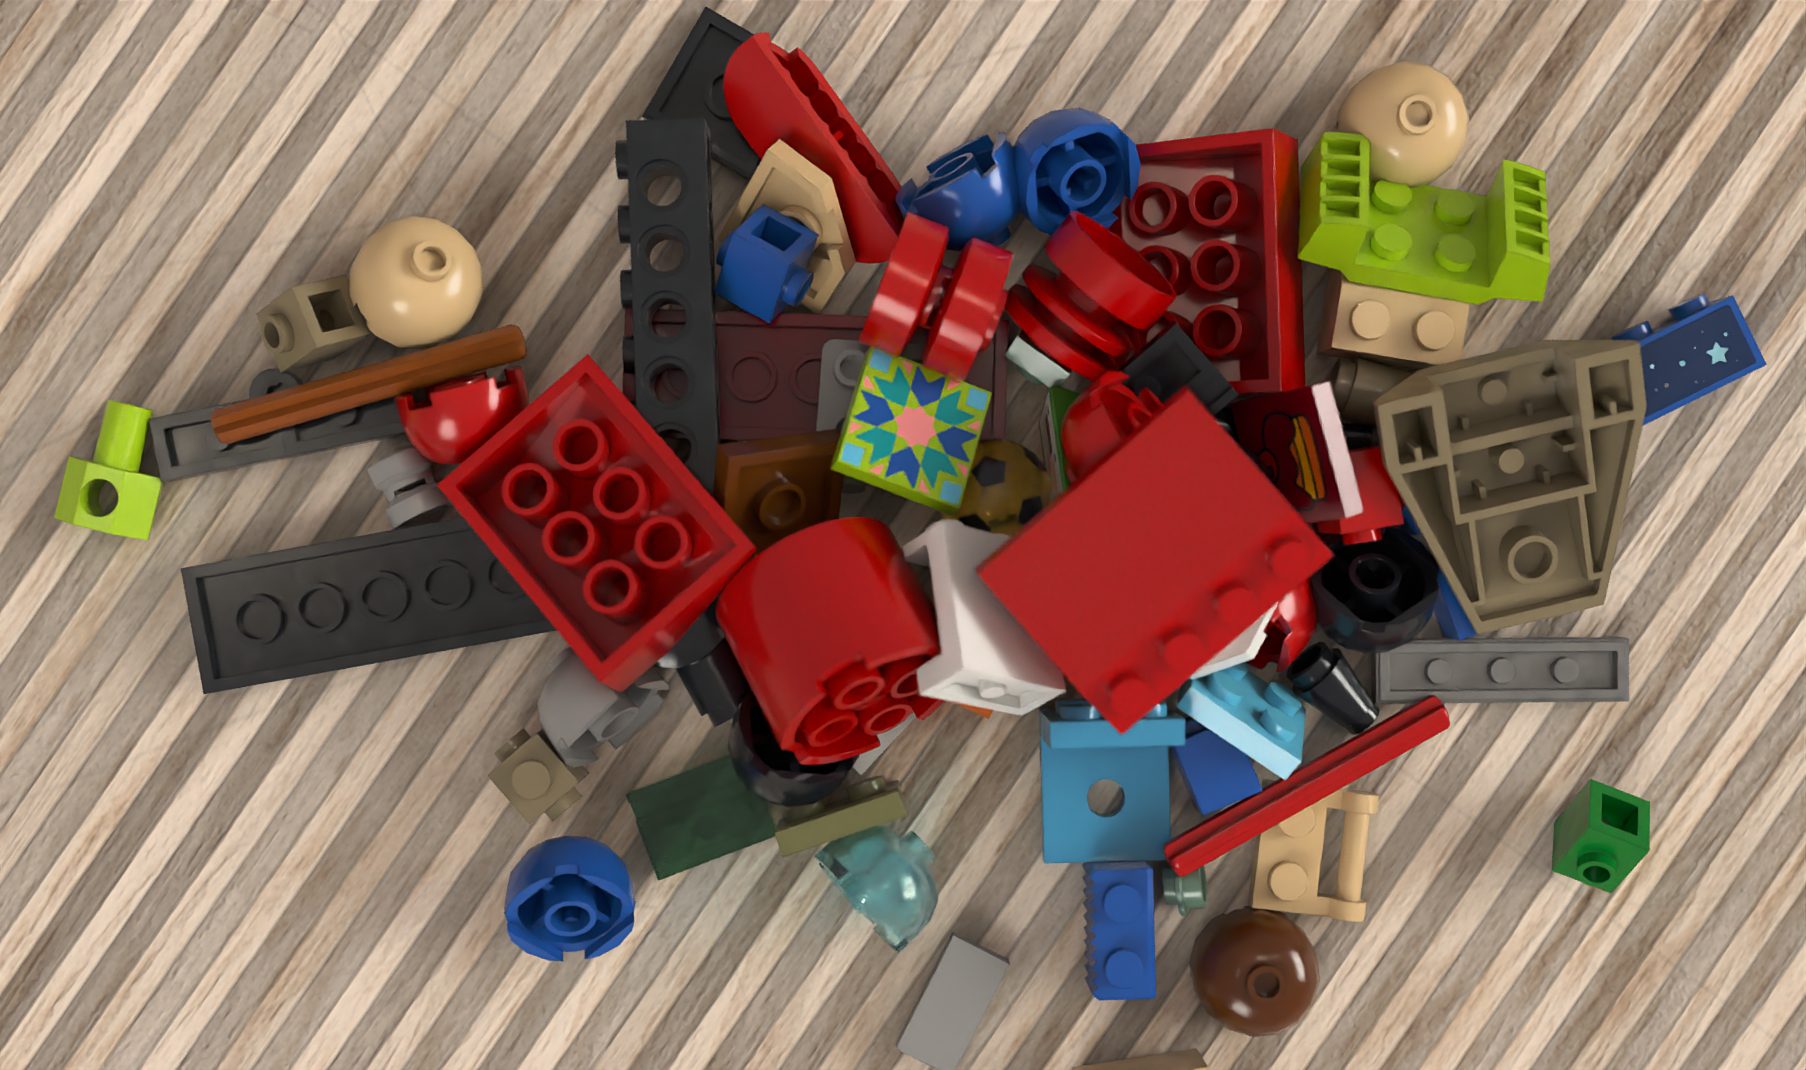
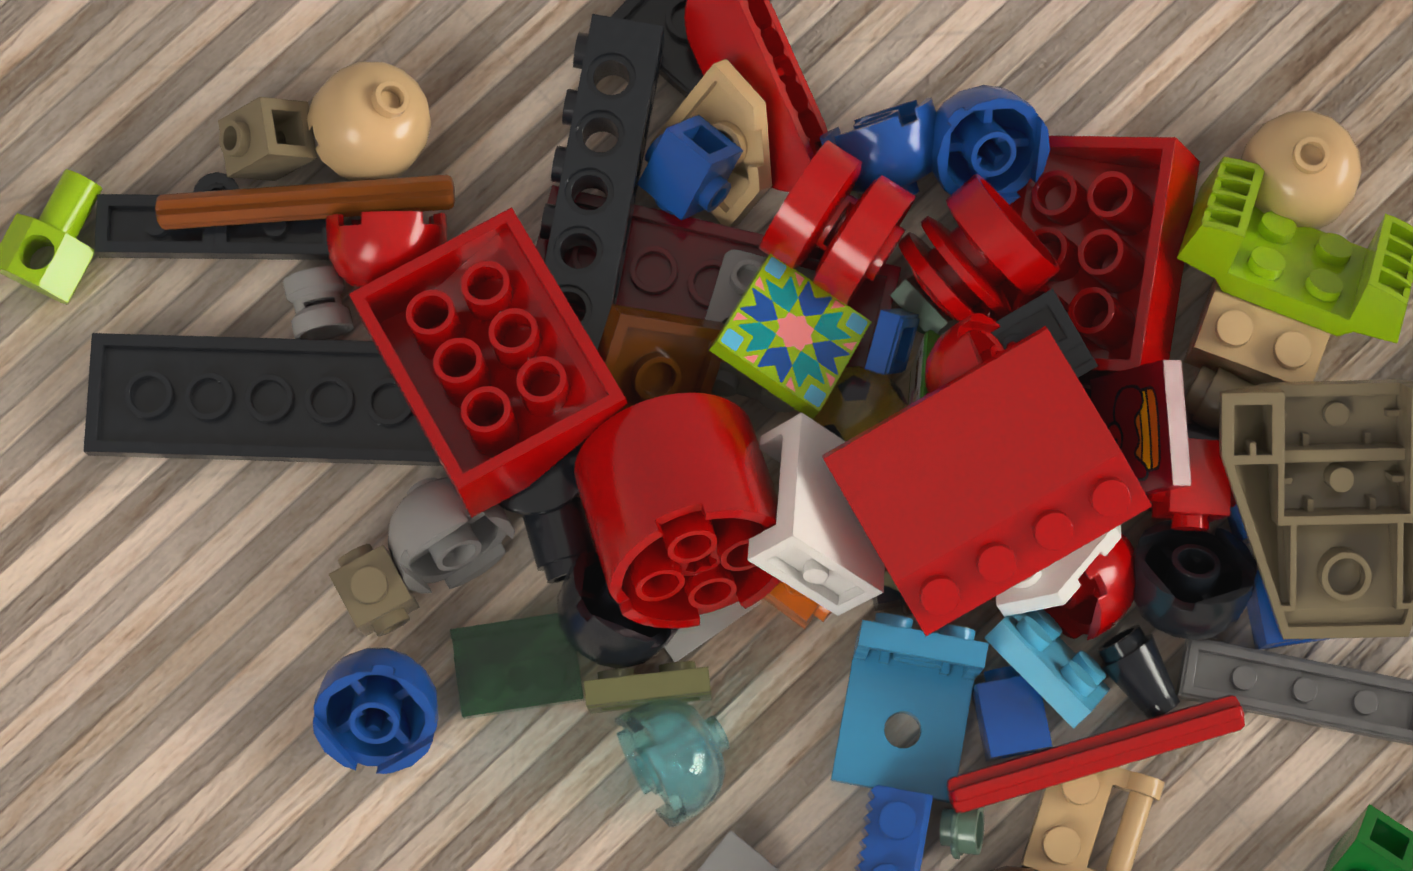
camera: 15 degrees right, 10 degrees down
(1017, 407) = (892, 341): none -> blue tile

